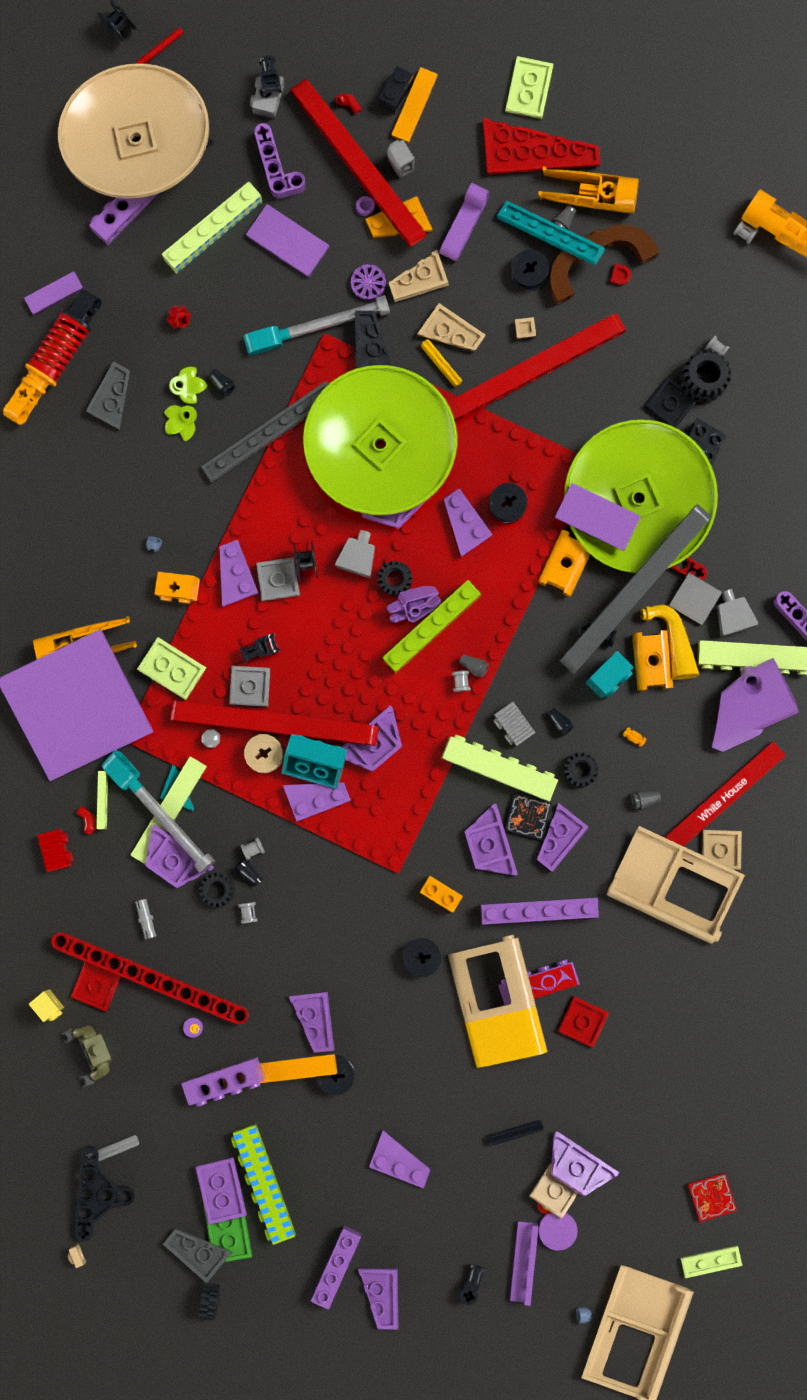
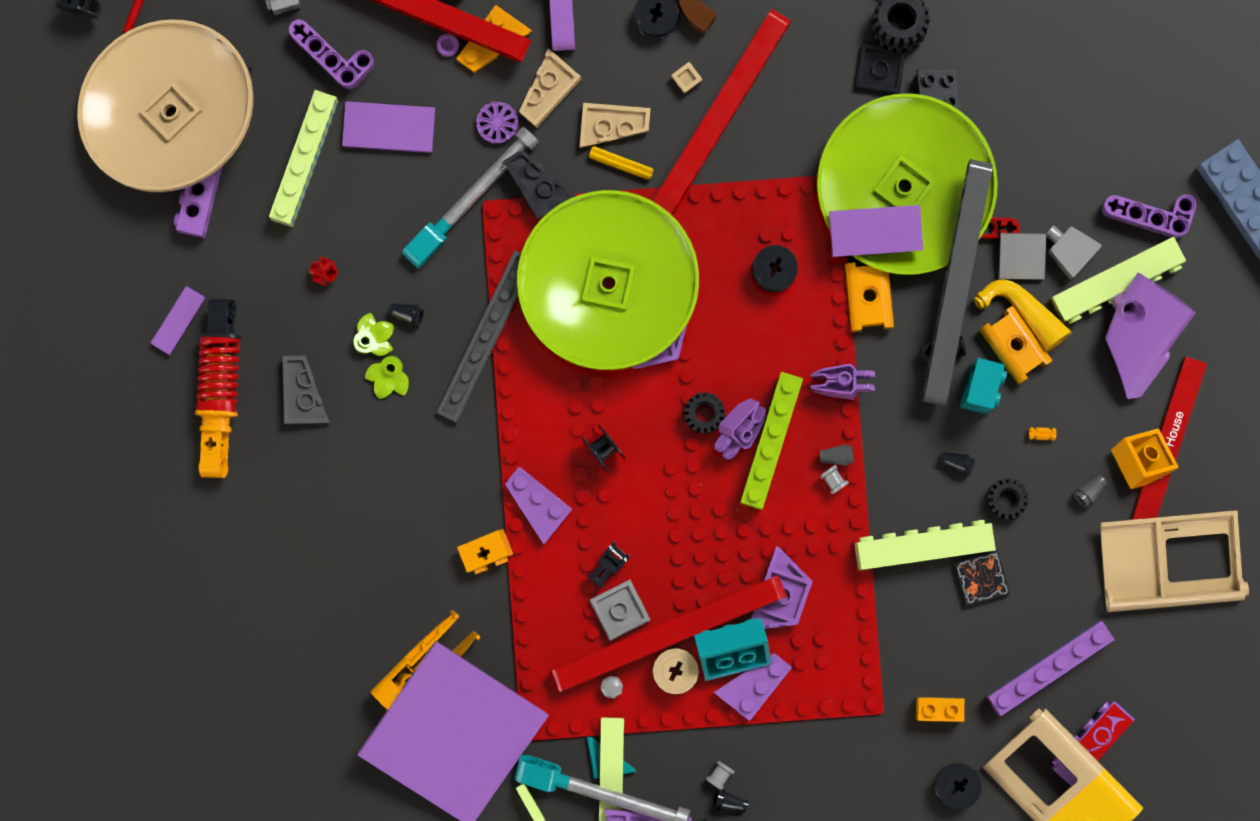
camera: 30 degrees left, 0 degrees up
(153, 543) = (433, 520): sand blue hinge -> none
(171, 668) = (529, 638): yellowish green tile -> none
(278, 579) = (584, 483): light grey tile -> none
(357, 555) = (652, 411): light grey torso -> none
(465, 522) = (743, 313): medium lavender wing -> none
(489, 843) = (959, 628): medium lavender wing -> none
(508, 613) = (842, 381): none -> medium lavender hinge
(514, 724) = (912, 492): light grey brick -> none
(562, 836) = (1028, 580): medium lavender wing -> none
(583, 1021) = (1159, 755): red tile -> none
(698, 797) = (1144, 458): none -> light orange slope
(723, 847) = (1197, 494): tan tile -> none

